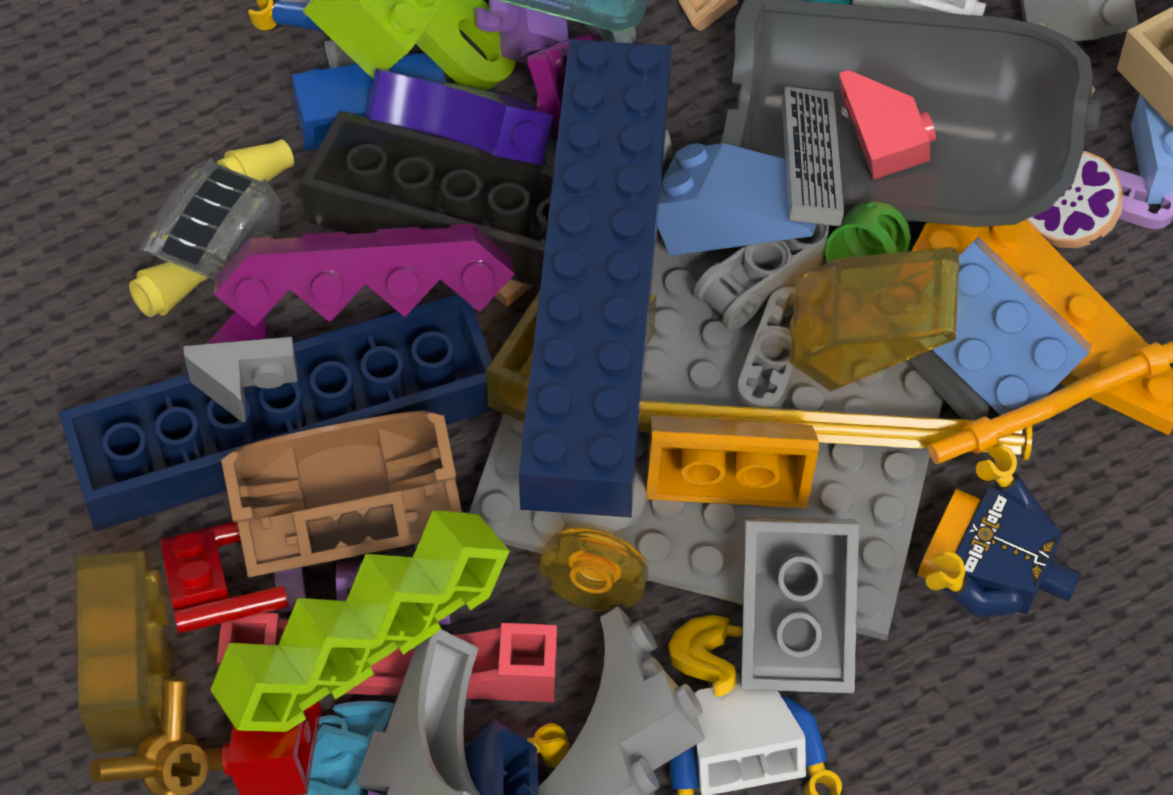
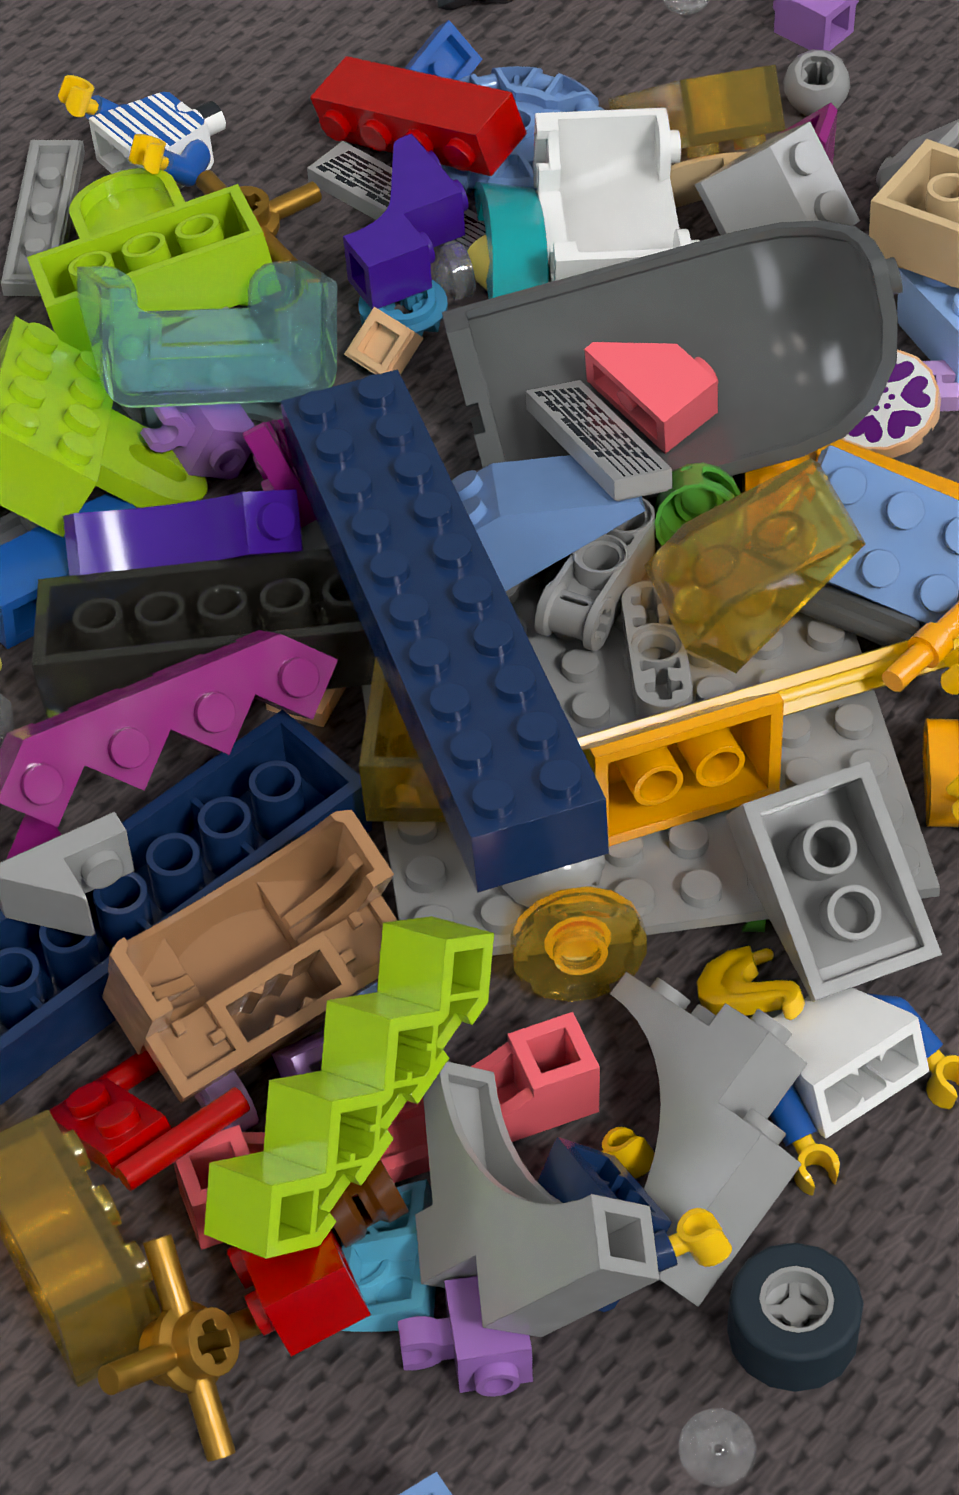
camera: 20 degrees left, 10 degrees down
(351, 708) = (379, 1202): none -> reddish brown wheel

